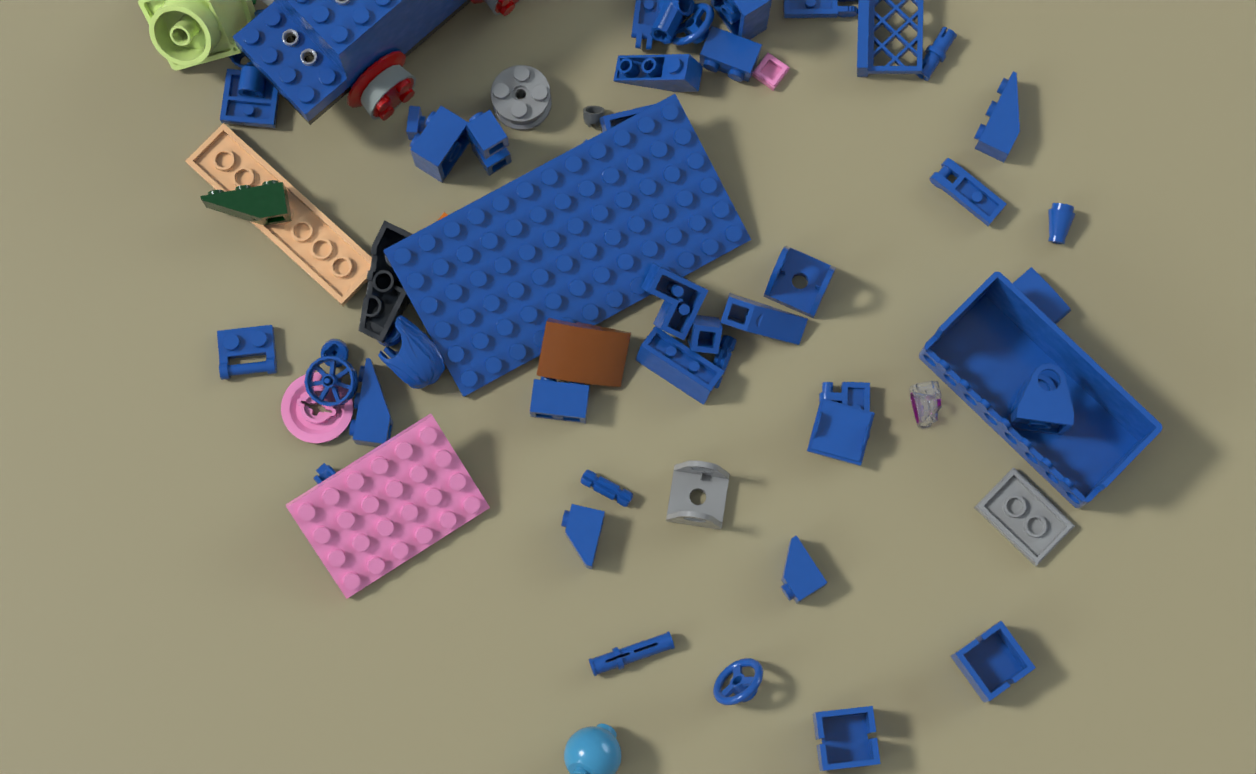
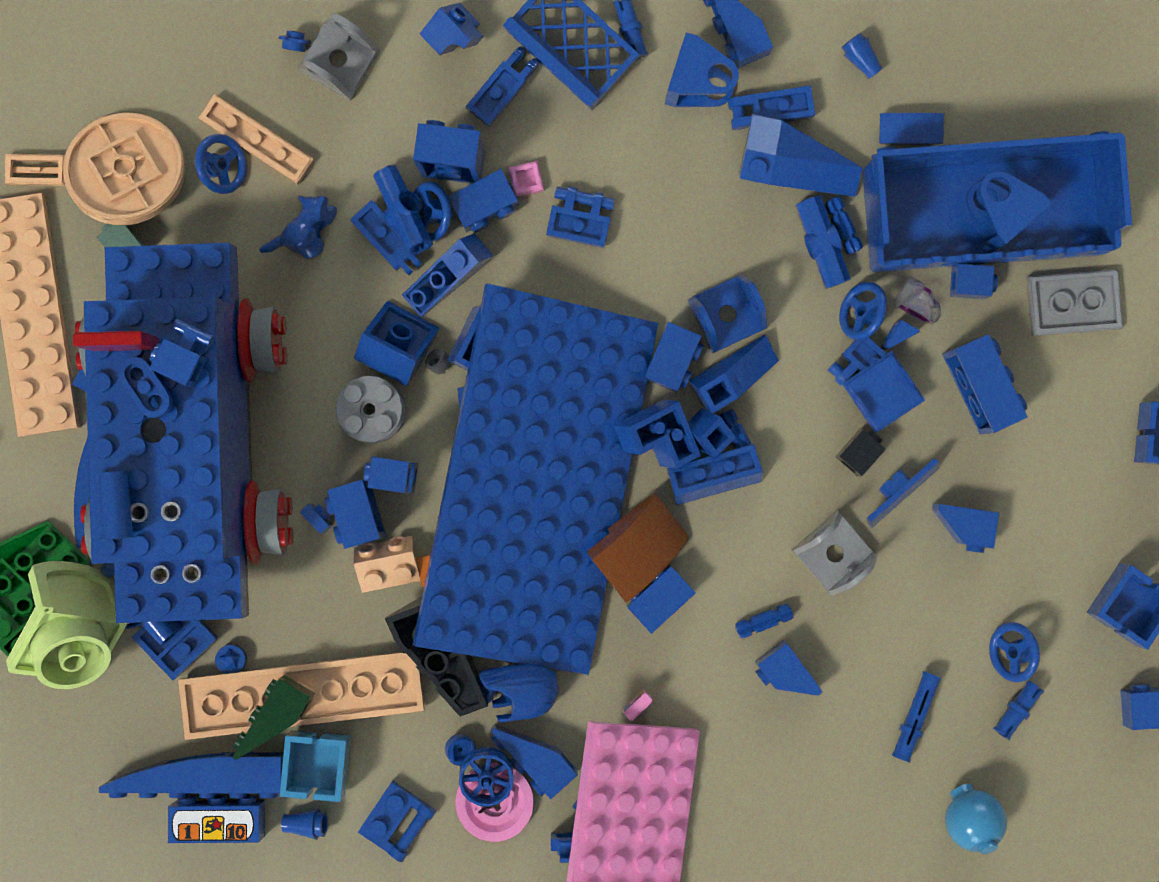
camera: 45 degrees left, 10 degrees up
(146, 228) = (216, 820): none -> brick
(171, 196) = (204, 775): none -> blue slope
(194, 292) = (307, 824): none -> blue cone
(240, 261) = (315, 764): none -> dark azure piece
(267, 147) = (231, 658): none -> blue tile
(422, 195) = (386, 564): none -> light nougat bracket
(471, 447) = (637, 705): none -> bright pink tile
(581, 76) = (396, 343): none -> blue slope
(699, 723) = (1018, 710): none -> blue pin
(736, 268) = (673, 357): none -> blue brick
(770, 131) = (579, 225): none -> blue plate
(782, 503) = (899, 489): none -> blue piece
(785, 453) = (861, 451): none -> black brick
(886, 375) = (867, 313): none -> blue piece
(890, 410) = (899, 332): none -> blue slope
(907, 303) = (822, 242): none -> blue piece
(909, 495) = (986, 385): none -> blue brick
(932, 309) = (843, 225): none -> blue axle
(942, 117) = (692, 73): none -> blue hose
(944, 230) = (788, 158): none -> blue wedge
(973, 430) = (973, 281): none -> blue brick

